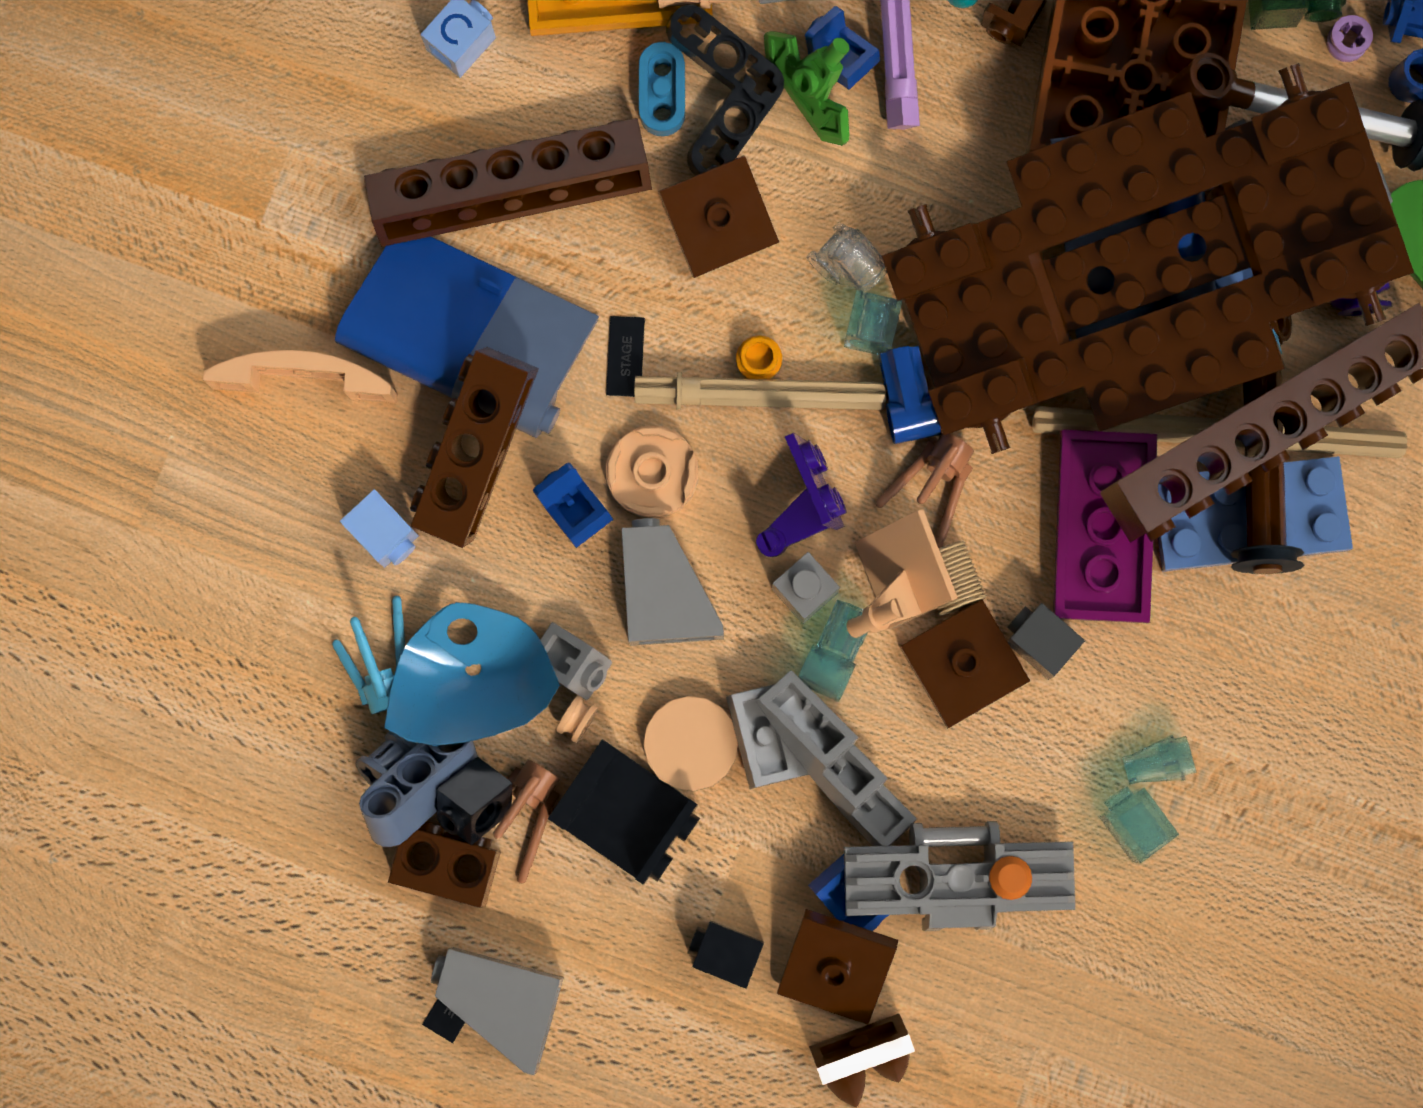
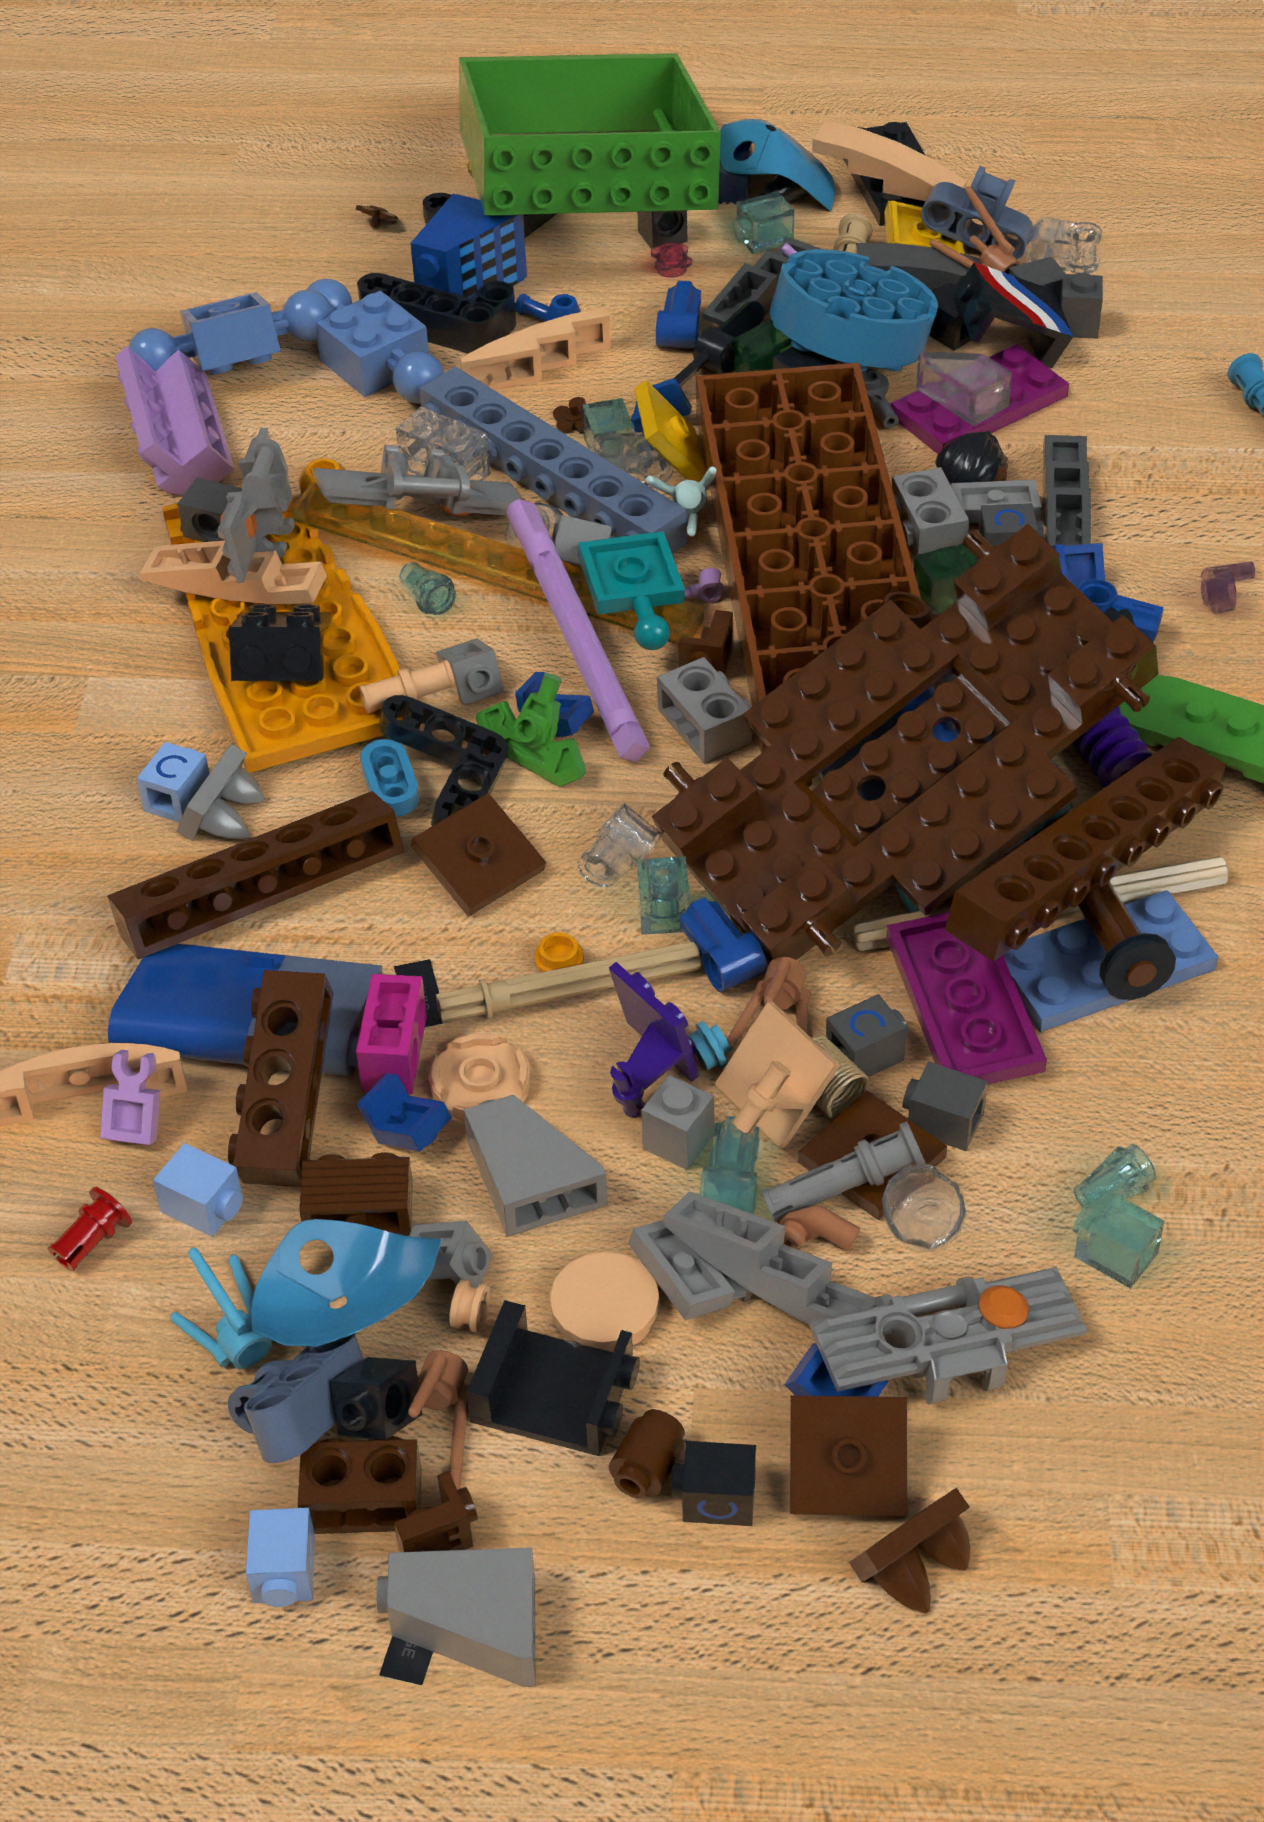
camera: 20 degrees left, 35 degrees down
(281, 539) = (92, 1225): none -> red pin
(337, 421) = (130, 1108): none -> lavender plate
(367, 912) = (280, 1556): none -> light blue brick
(485, 84) = (207, 808): none -> light grey tile
(489, 925) = (442, 1526): none -> reddish brown bracket
(511, 576) = (359, 1191): none -> reddish brown brick
(582, 416) = (391, 1030): none -> dark pink brick
(679, 908) = (647, 1454): none -> reddish brown brick
(860, 507) = (710, 1045): none -> medium azure plate
(891, 724) = (817, 1222): none -> nougat arm
(950, 692) = (866, 1164): none -> light grey pin
(976, 96) = (704, 709): none -> light grey brick
(984, 747) = (923, 1208): none -> clear hair
(1002, 544) = (869, 1034): none -> dark grey brick

